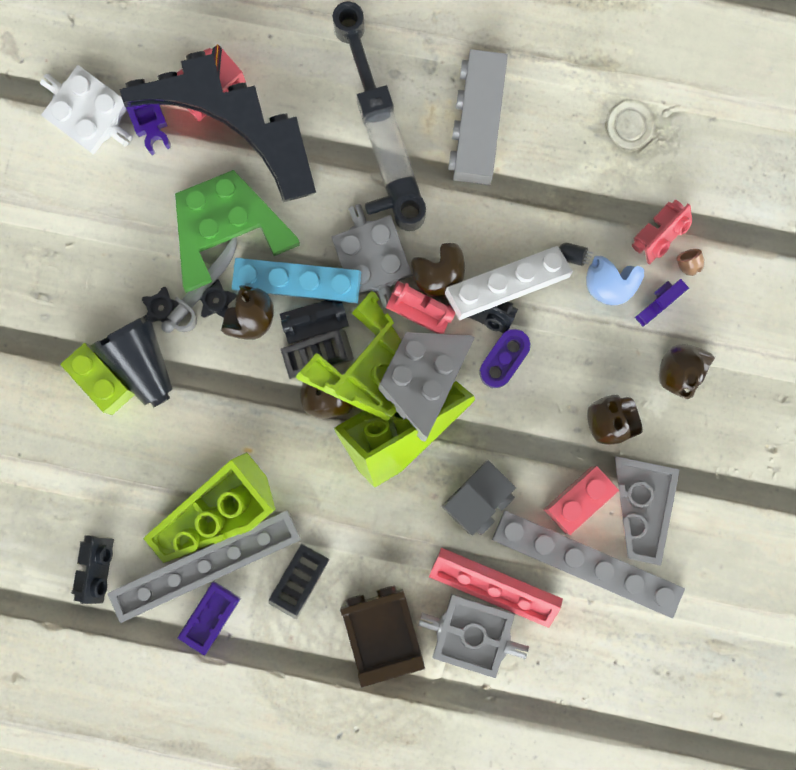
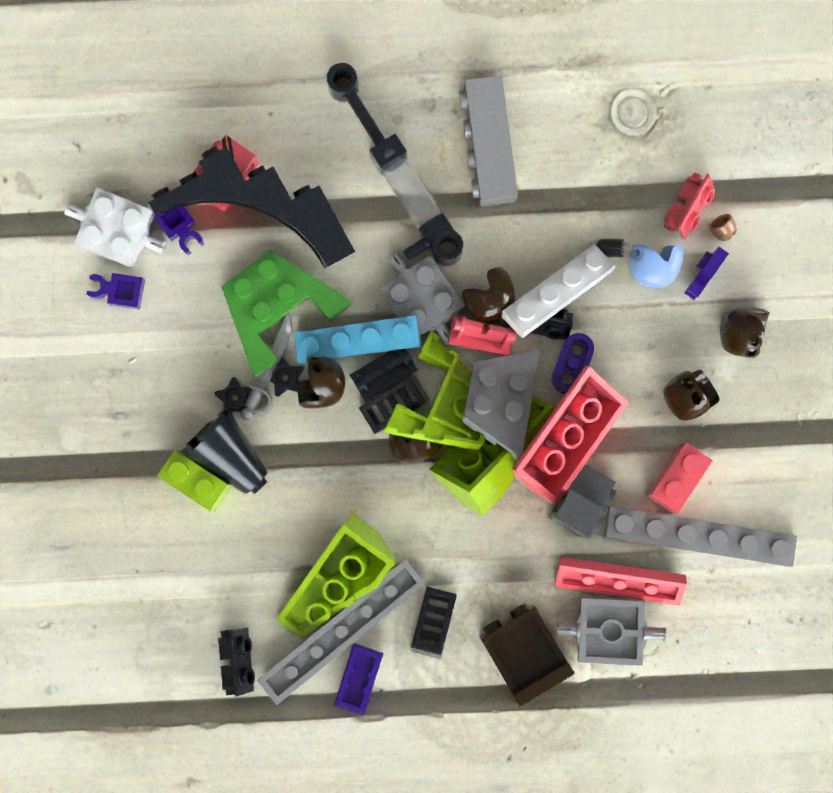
camera: 10 degrees left, 0 degrees up
(74, 173) = (121, 291): none -> dark purple plate
(481, 429) = (569, 436): none -> coral slope
(646, 506) = (741, 468): light grey wing -> none

